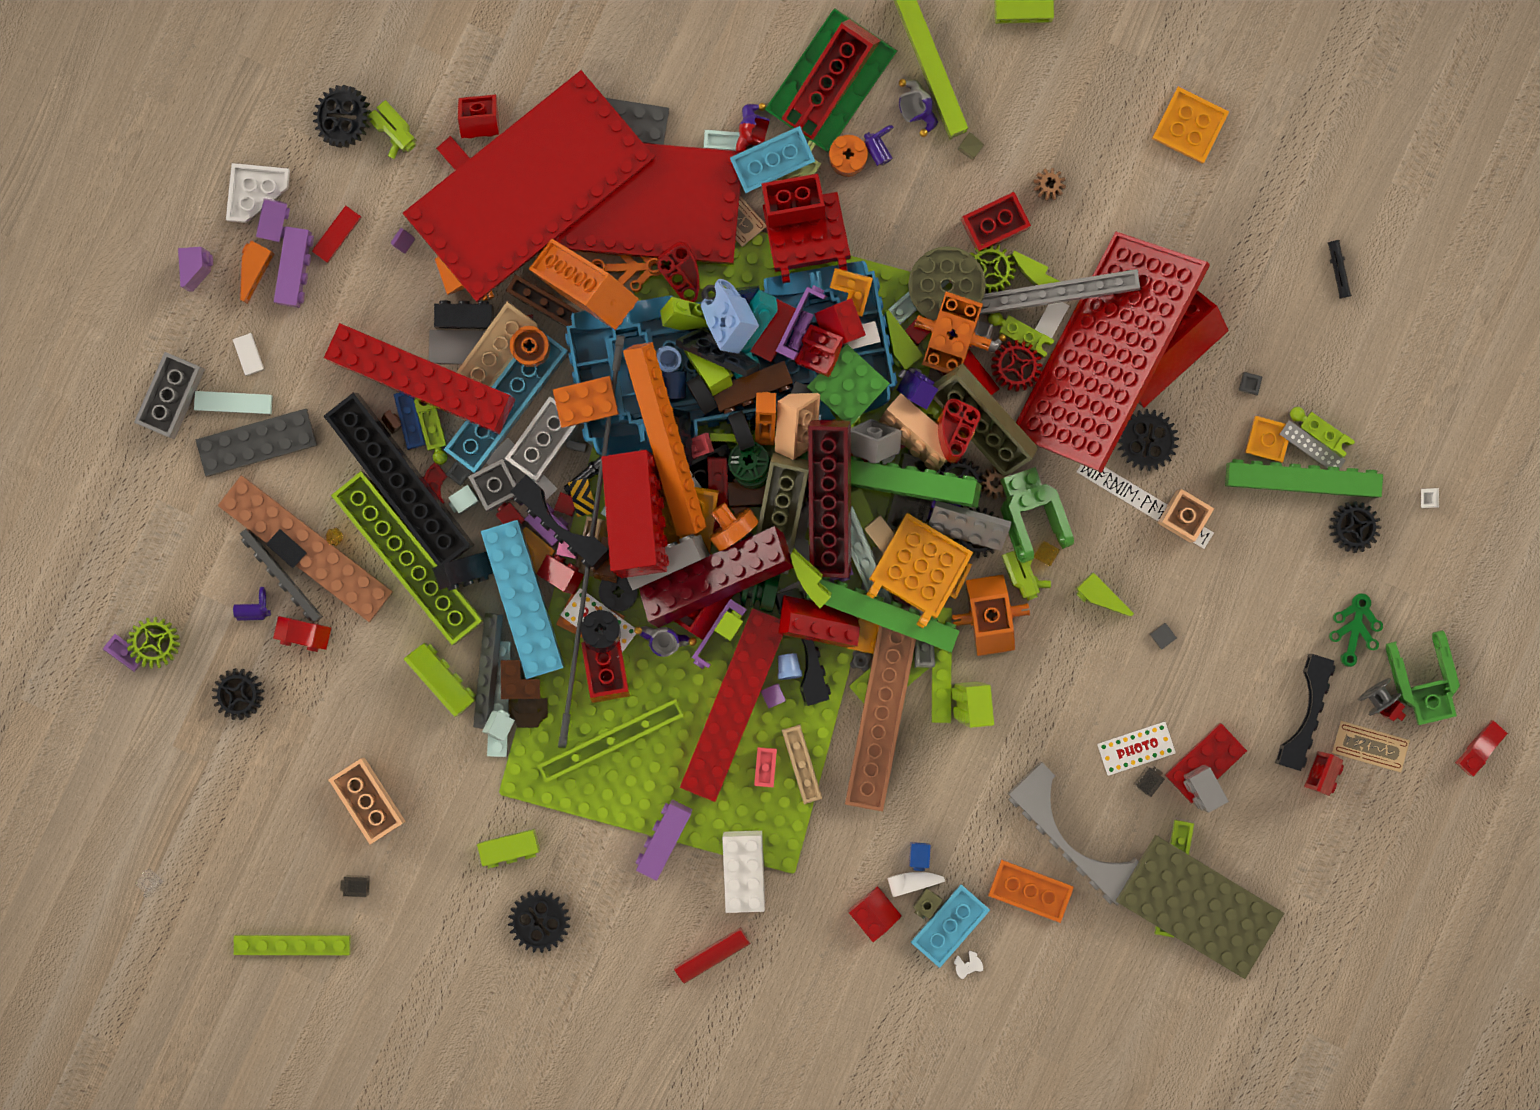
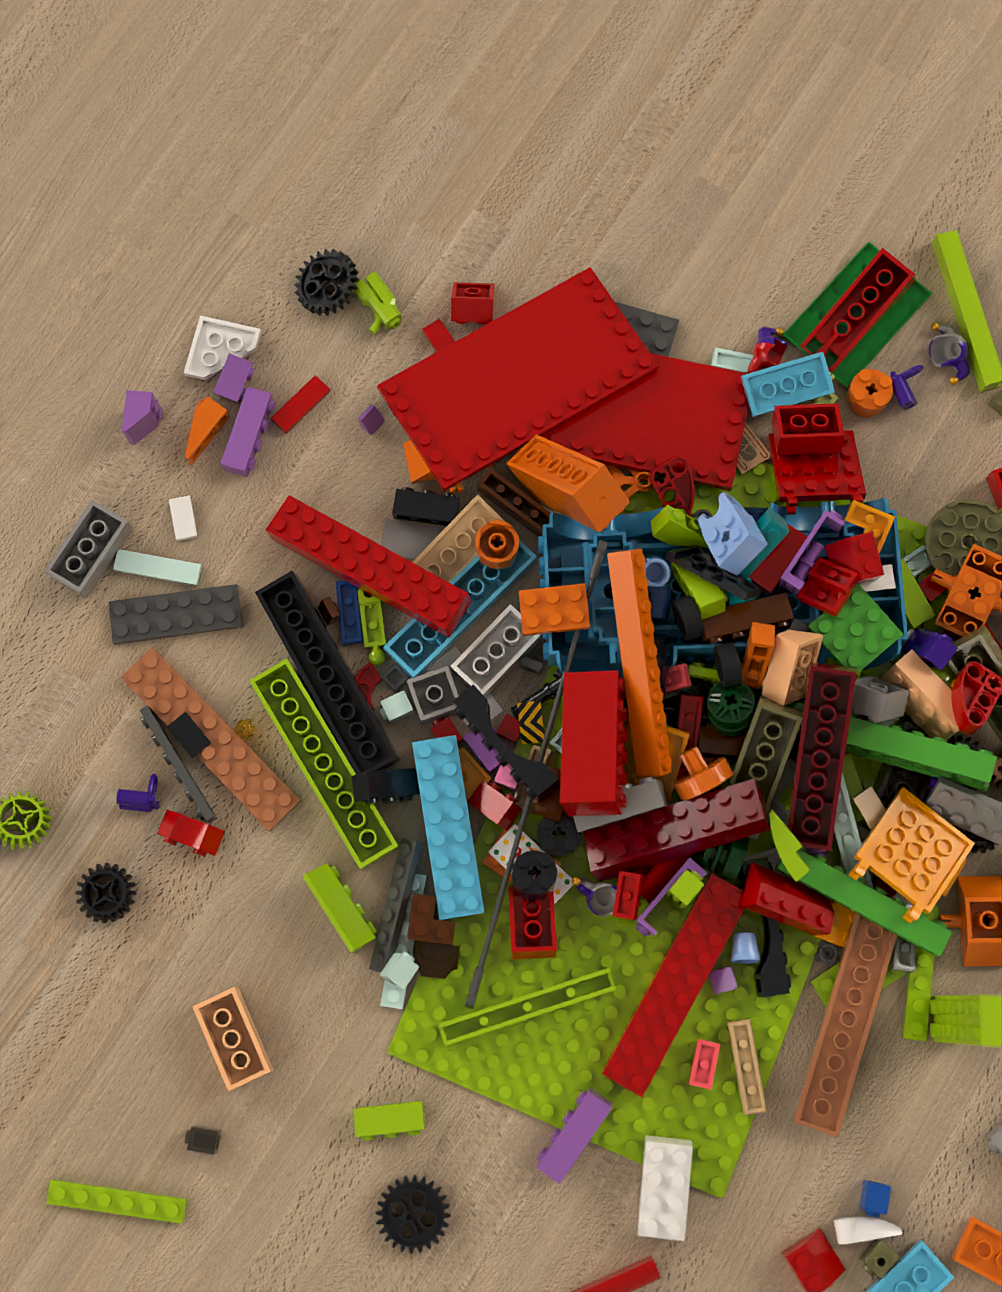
camera: 10 degrees right, 10 degrees down
(682, 637) = (627, 895): none -> red plate

